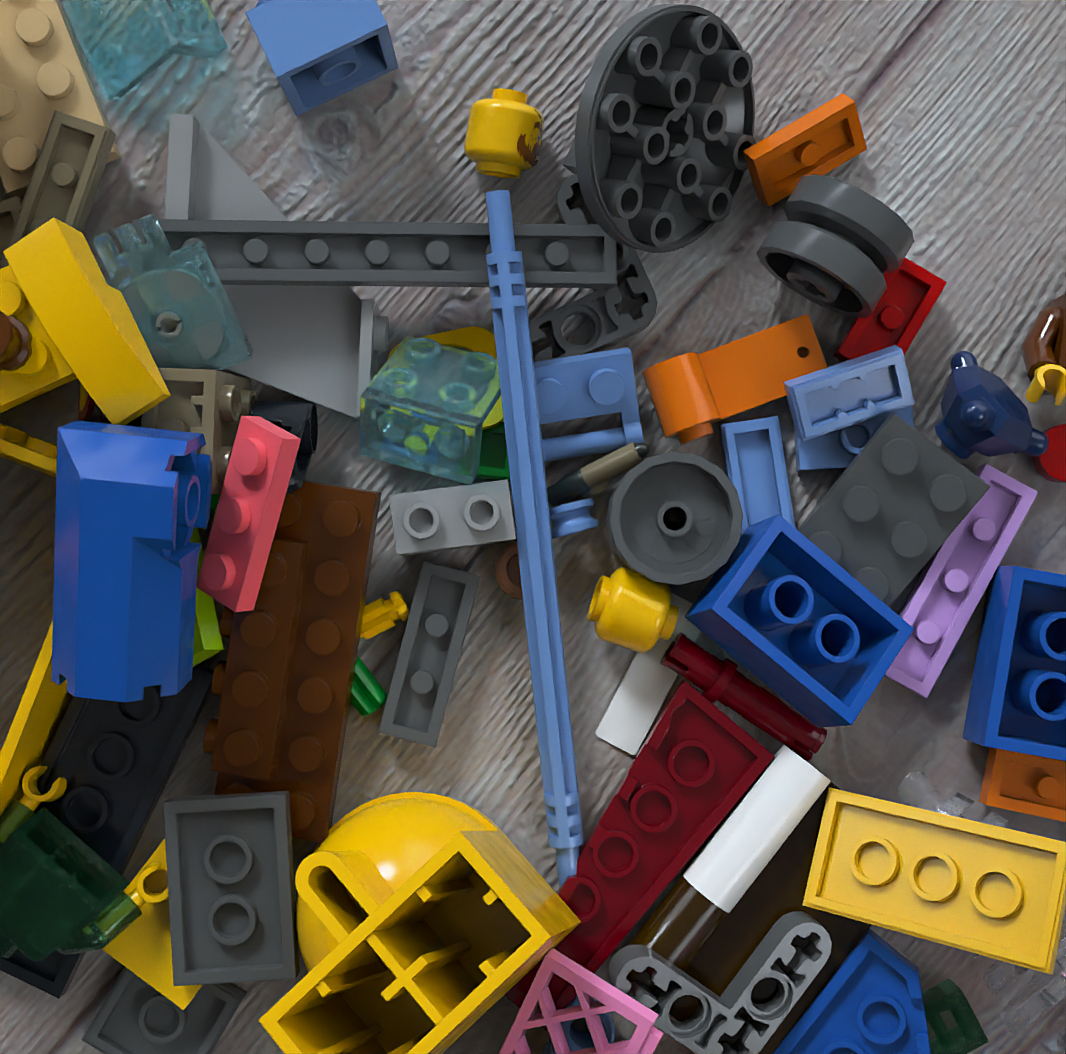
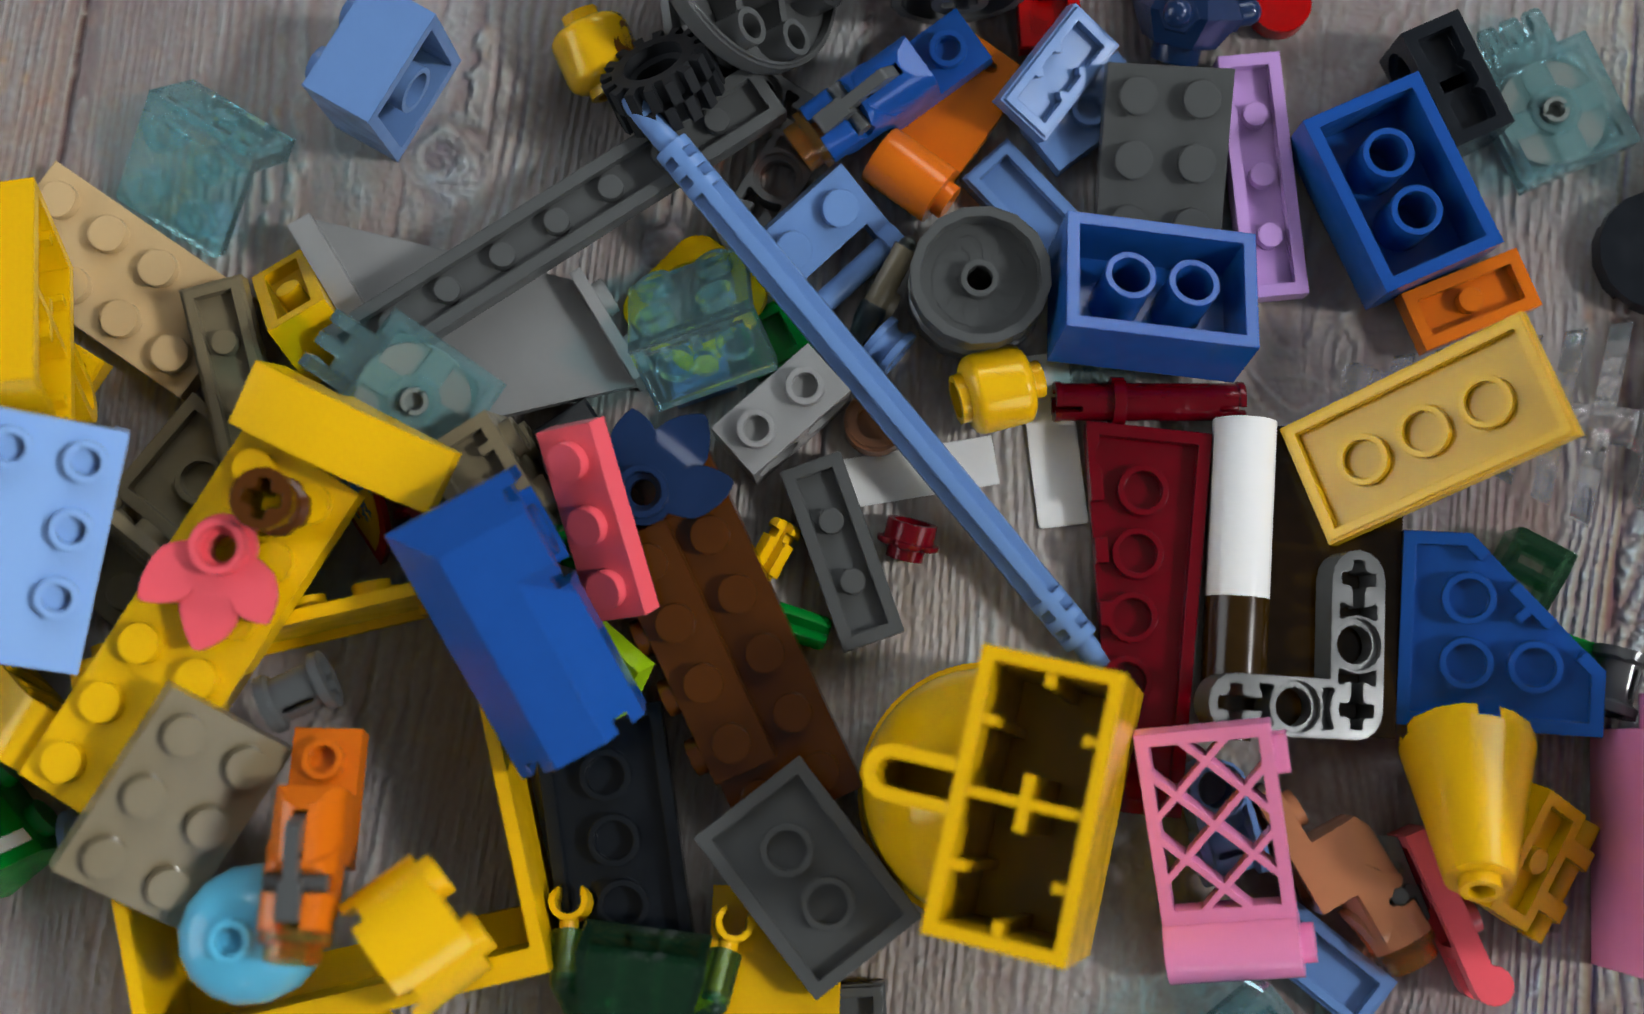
camera: 30 degrees left, 5 degrees down
(133, 182) = (294, 308): none -> yellow slope
(337, 505) = (673, 462): none -> dark blue plate
(488, 677) = (908, 538): none -> dark red plate
(505, 619) = (894, 479): none -> white sticker
(538, 195) = (667, 72): none -> black tyre
(706, 319) = (887, 91): none -> blue plate

